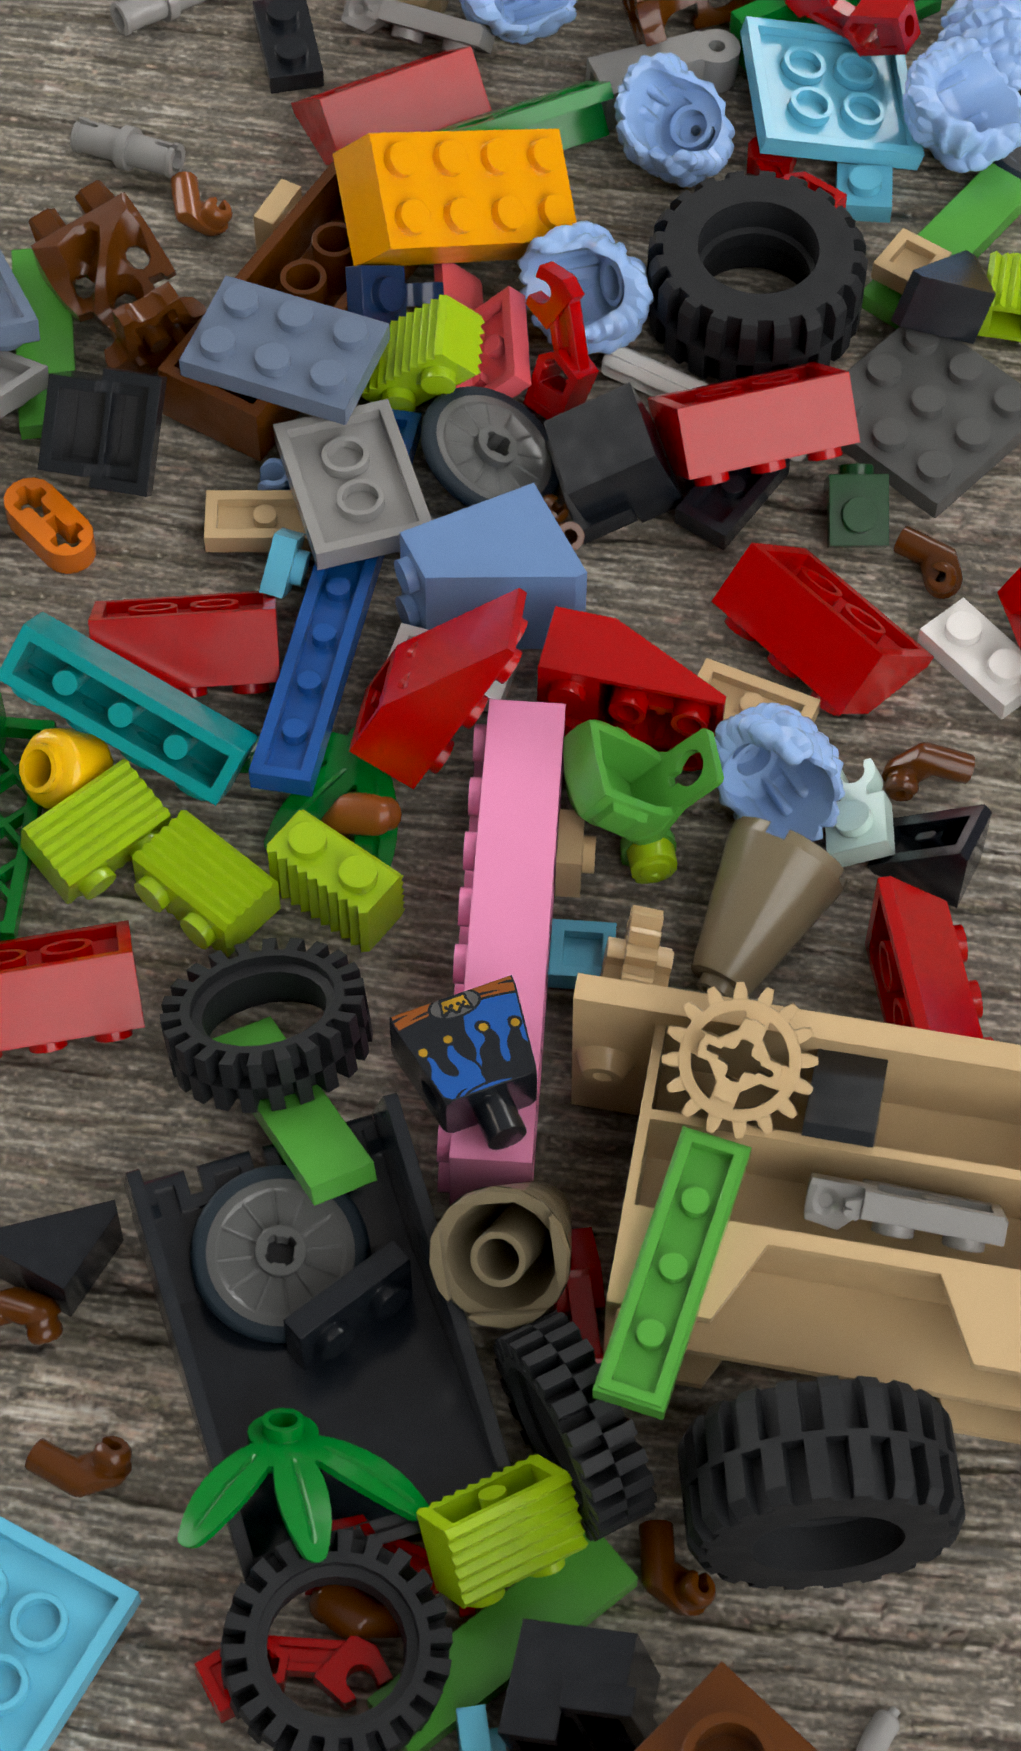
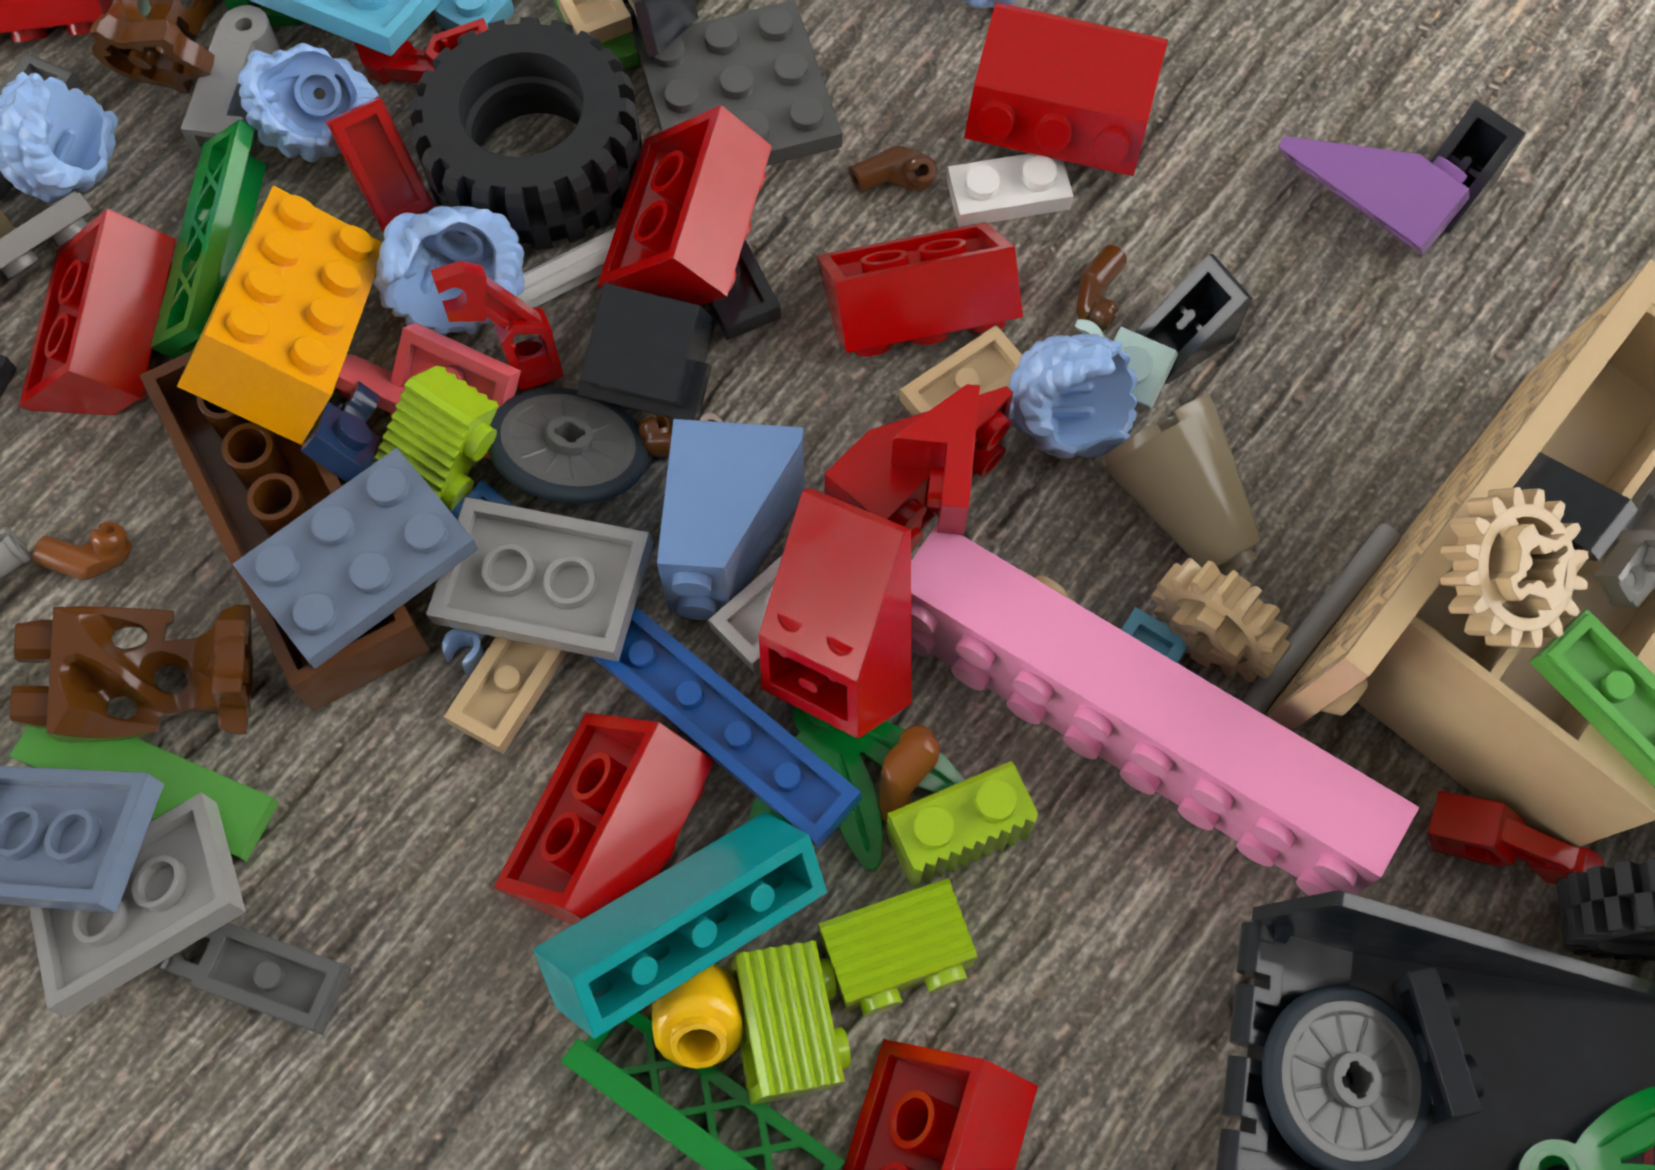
camera: 60 degrees left, 10 degrees up
(40, 532) = (374, 871): orange beam -> none
(104, 428) = (323, 773): black plate -> none
(275, 209) = (165, 486): tan plate -> none
(277, 1067) = (1177, 1013): black tyre -> none
(285, 563) = (581, 688): medium azure plate -> none
(310, 1135) = (1214, 991): bright green tile -> none
(470, 1060) = (1315, 802): torso -> none
(504, 1252) = (1510, 870): dark tan cone -> none
(628, 668) = (945, 446): none -> red slope
(634, 792) = (1035, 520): bright green piece -> none
(655, 181) = (379, 161): none -> red tile
(857, 507) = (808, 191): dark green bracket -> none
(920, 962) = (1343, 411): red slope -> none

